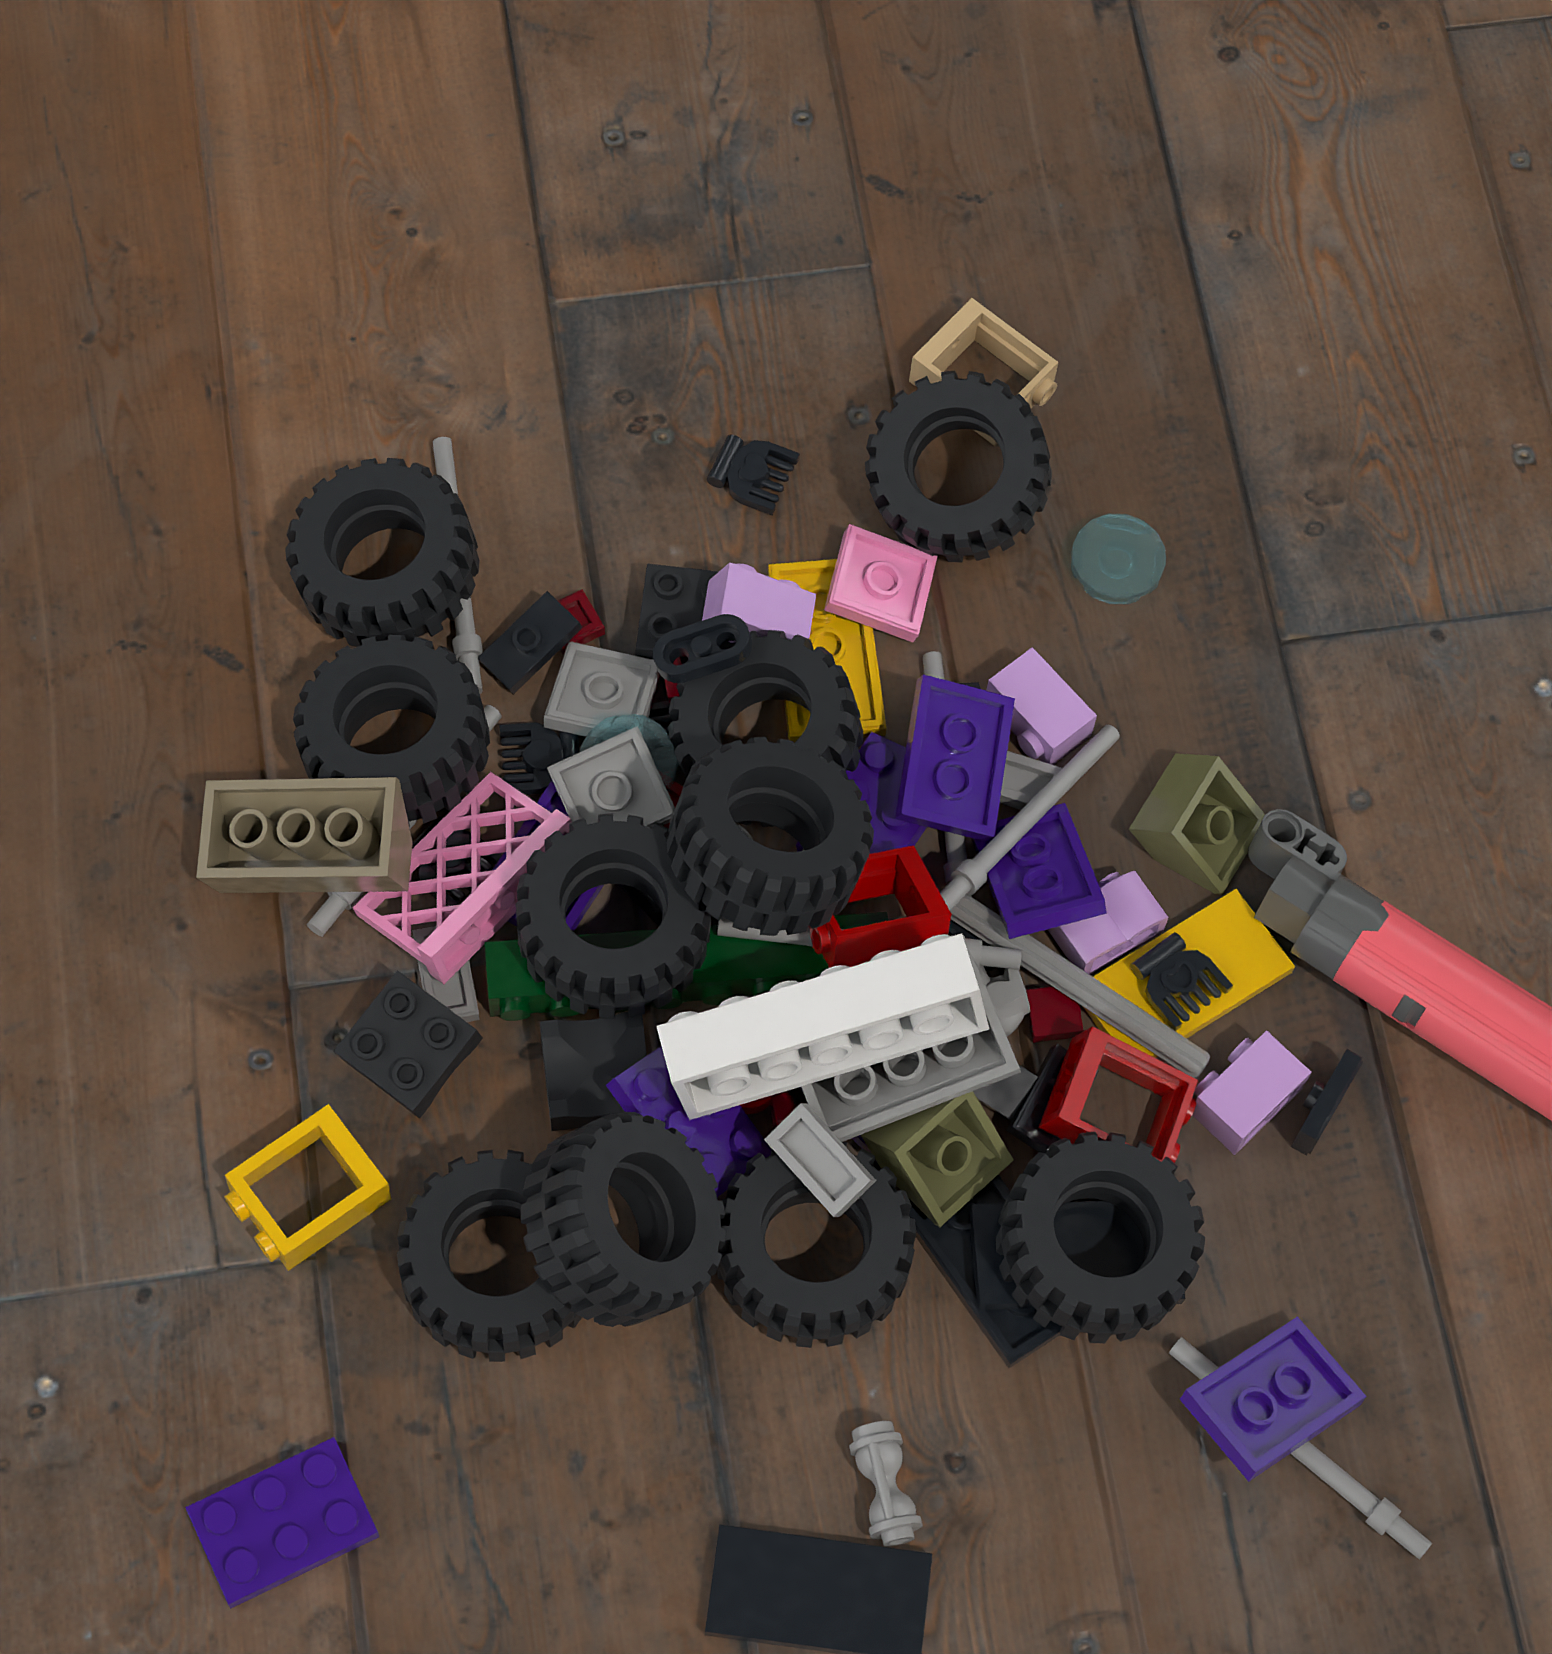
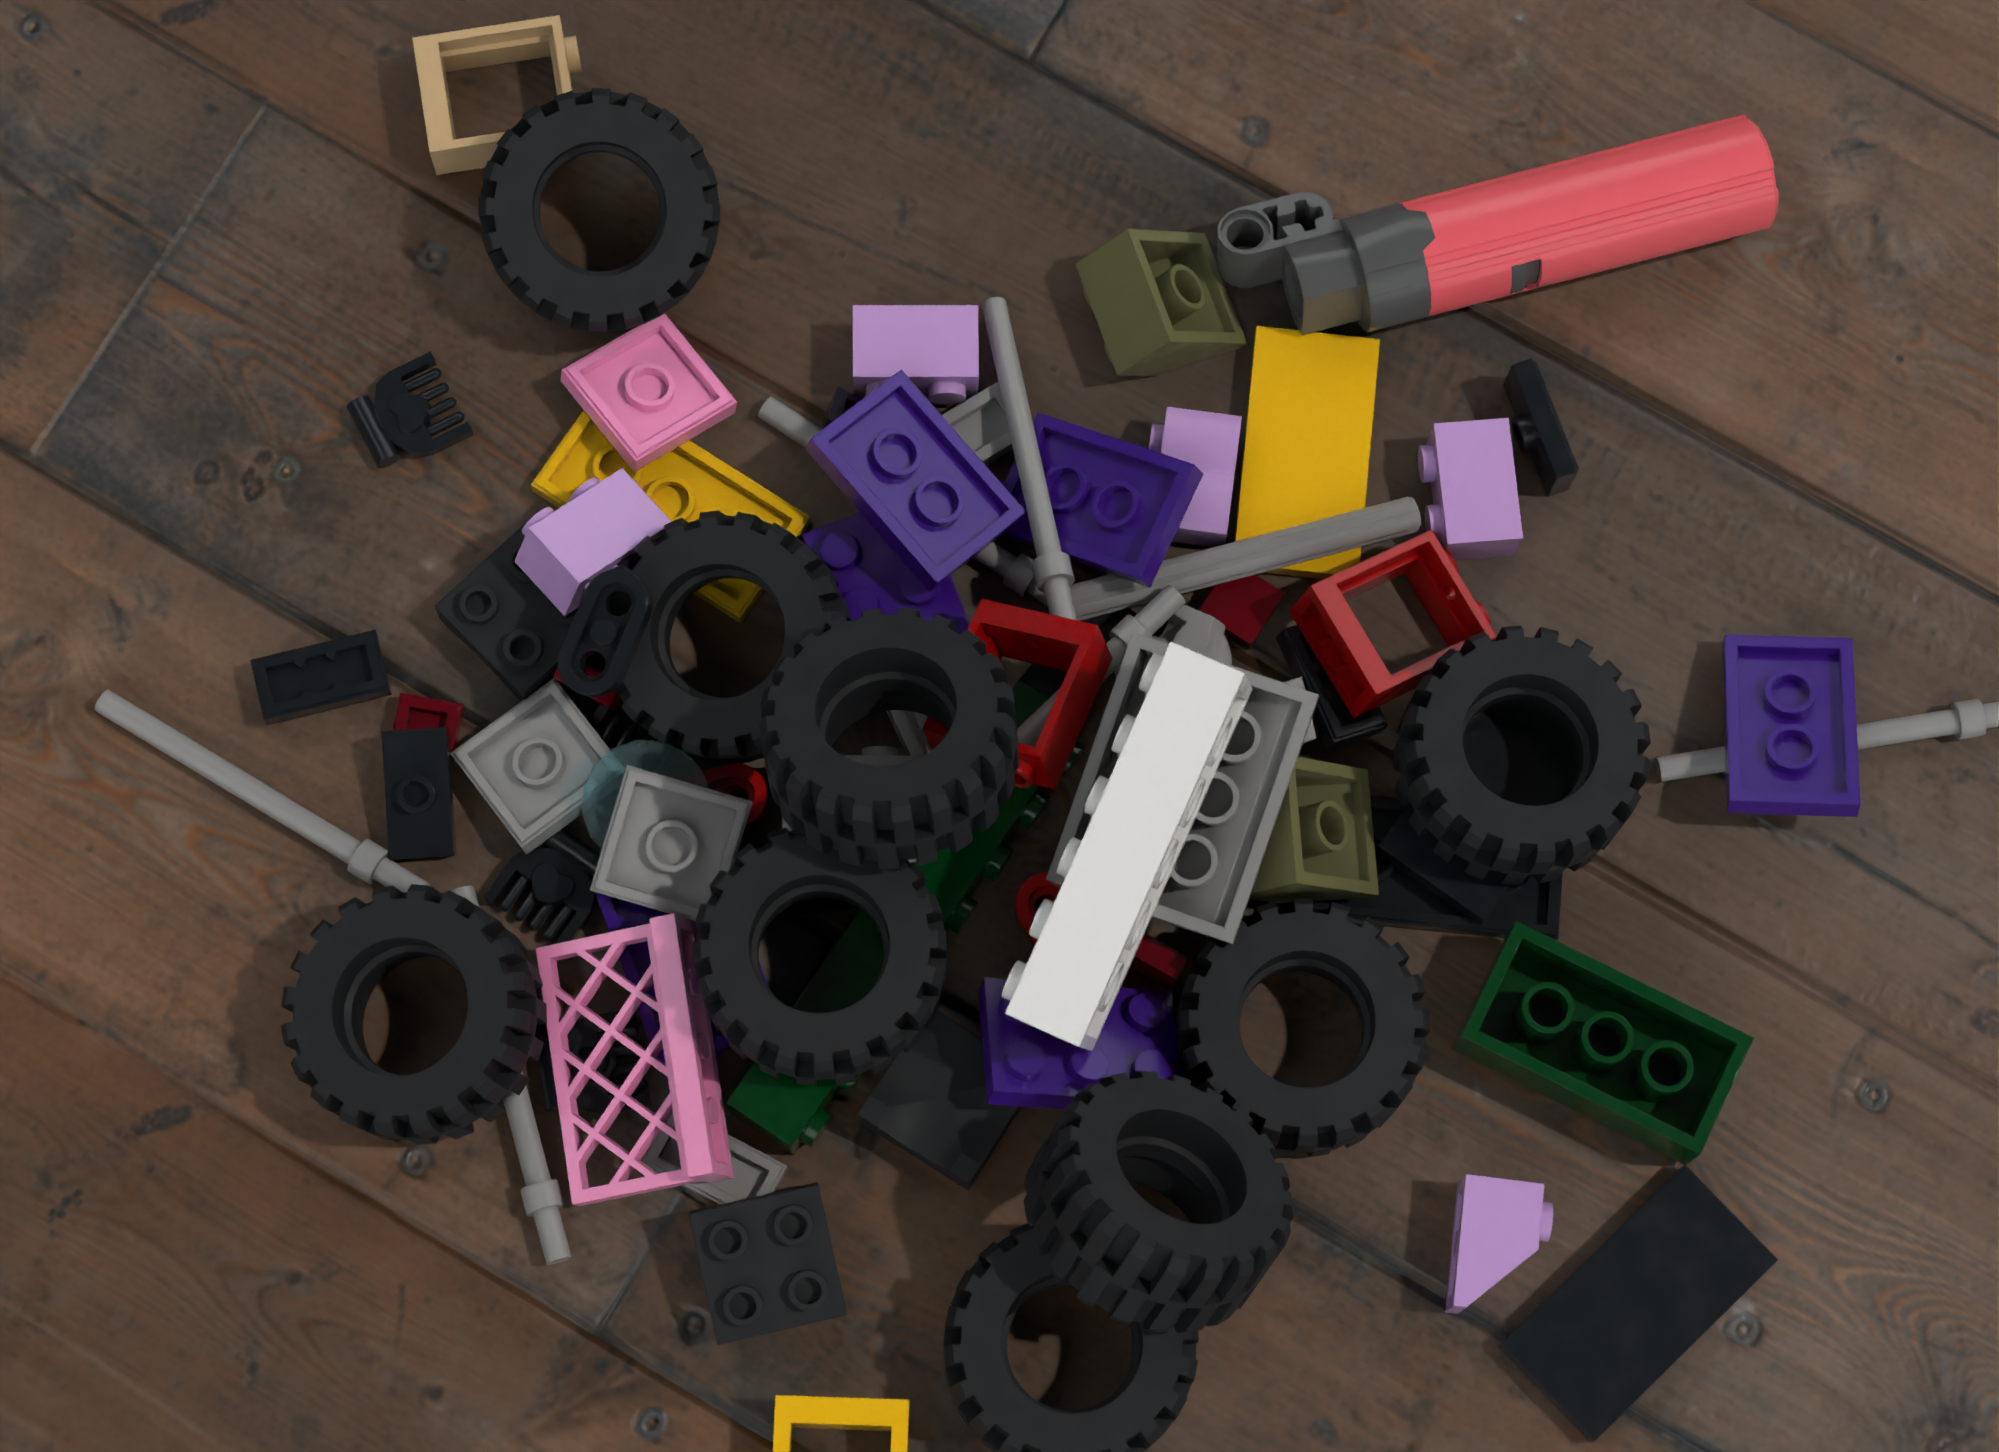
camera: 50 degrees left, 10 degrees up
(305, 836) = (463, 1195): dark tan slope -> none
(371, 501) = (118, 850): black tyre -> none
(554, 541) = (320, 677): none -> black plate
(783, 1465) = (1493, 1233): none -> lavender slope
(820, 1160) = (1247, 960): light grey tile -> none
(879, 1459) = (1558, 1140): light grey piece -> none
(963, 1435) = (1603, 1043): none -> dark green brick
(1118, 558) = (812, 139): clear light blue tile -> none
(1176, 975) = (1304, 457): black piece -> none

